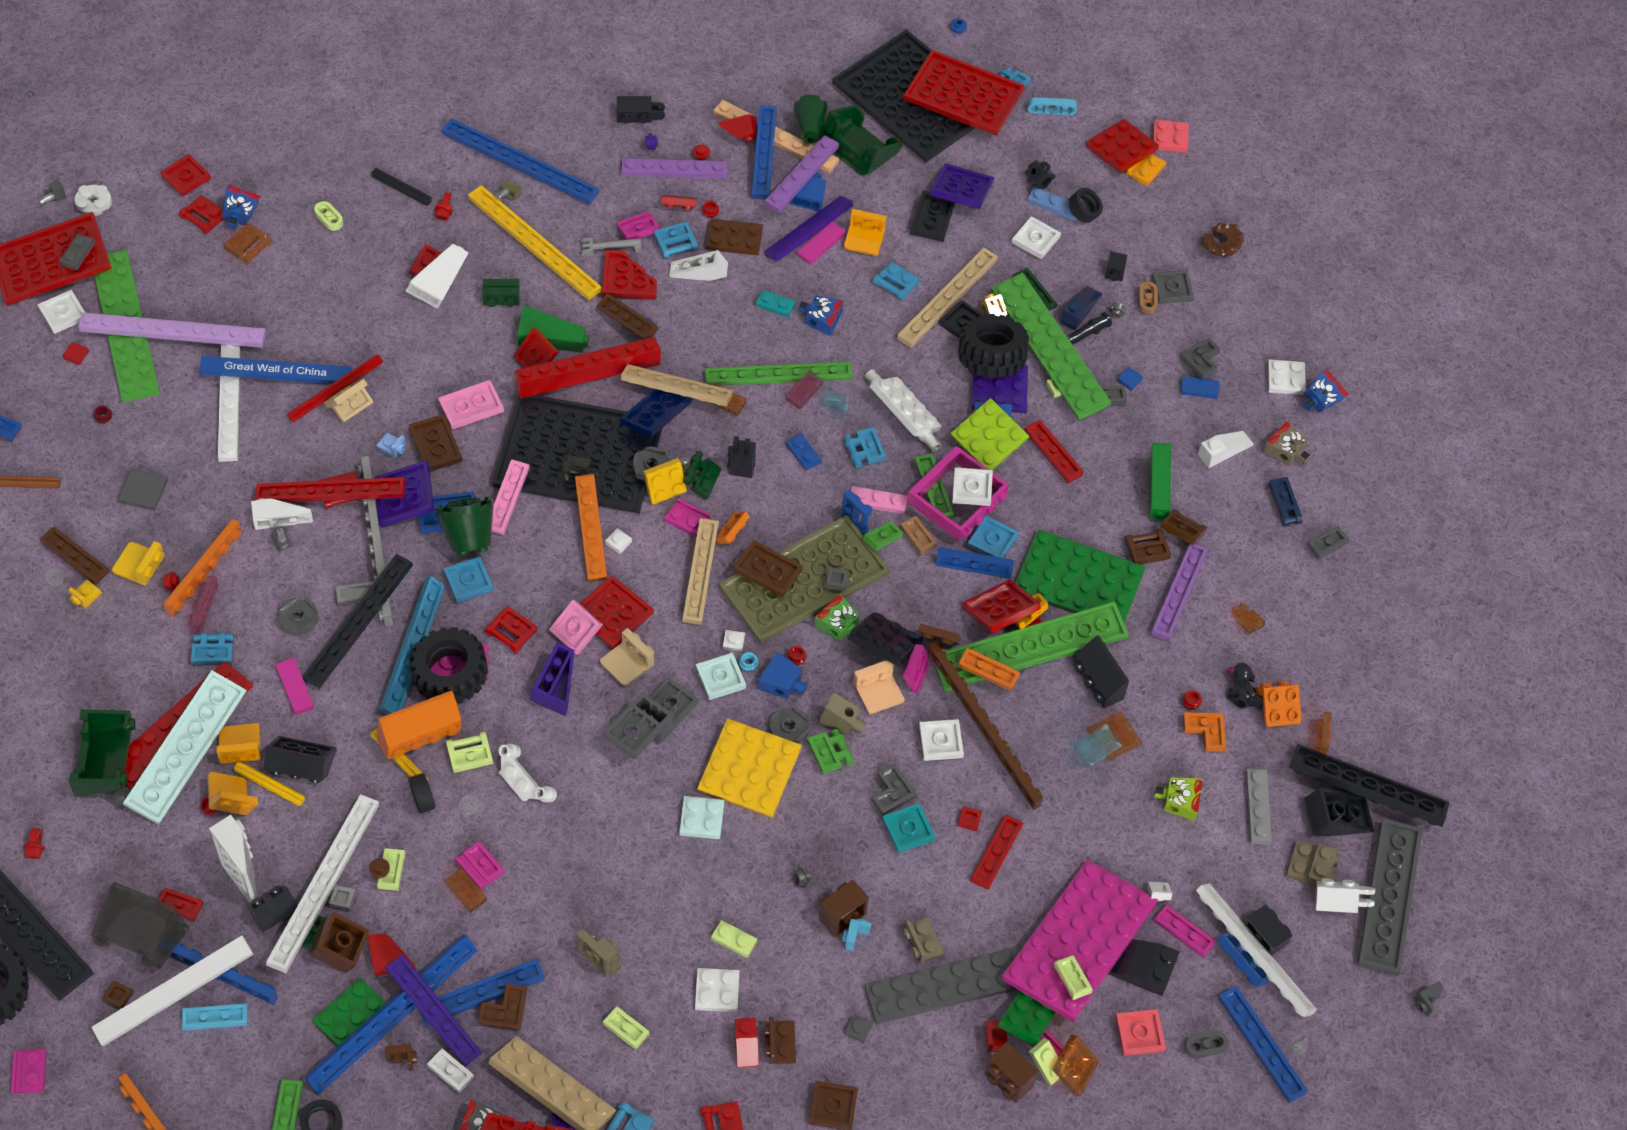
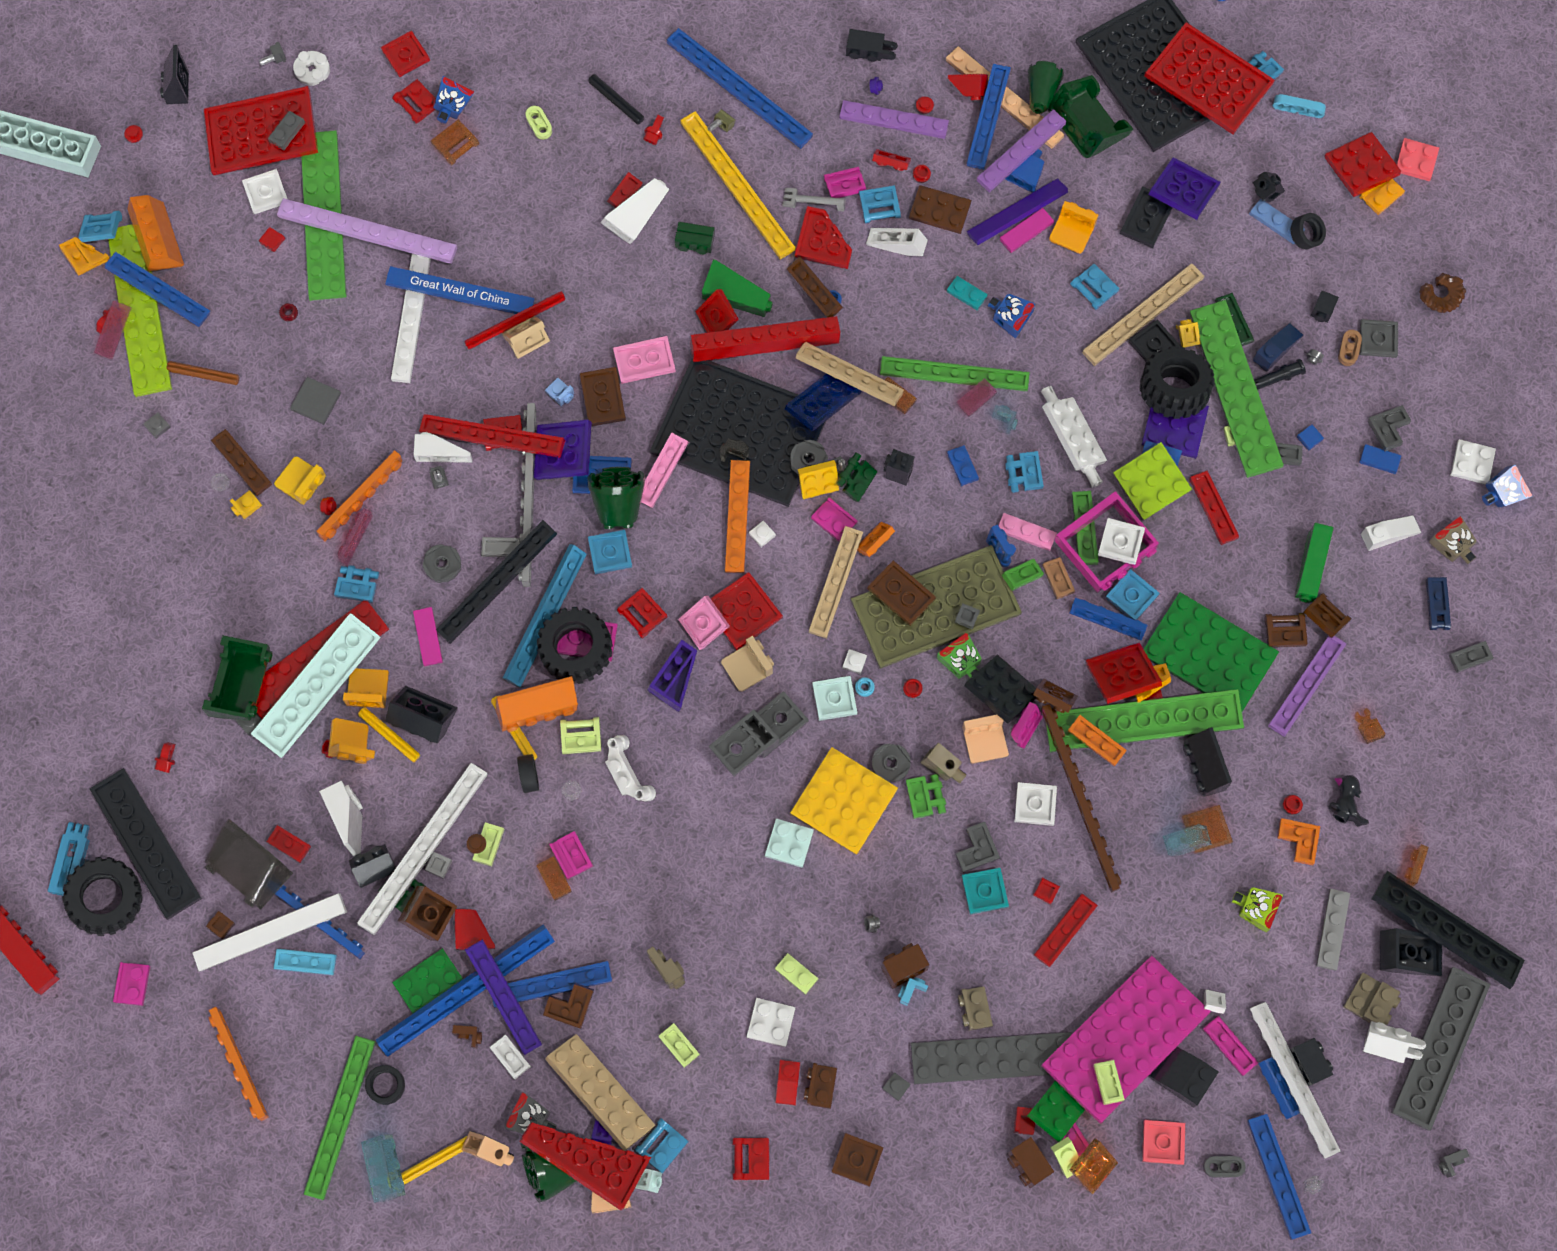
camera: 15 degrees right, 15 degrees up
(782, 677) = (893, 711): blue torso -> none
(1036, 237) = (1249, 259): white plate -> none
(1280, 703) = (1379, 824): orange bracket -> none

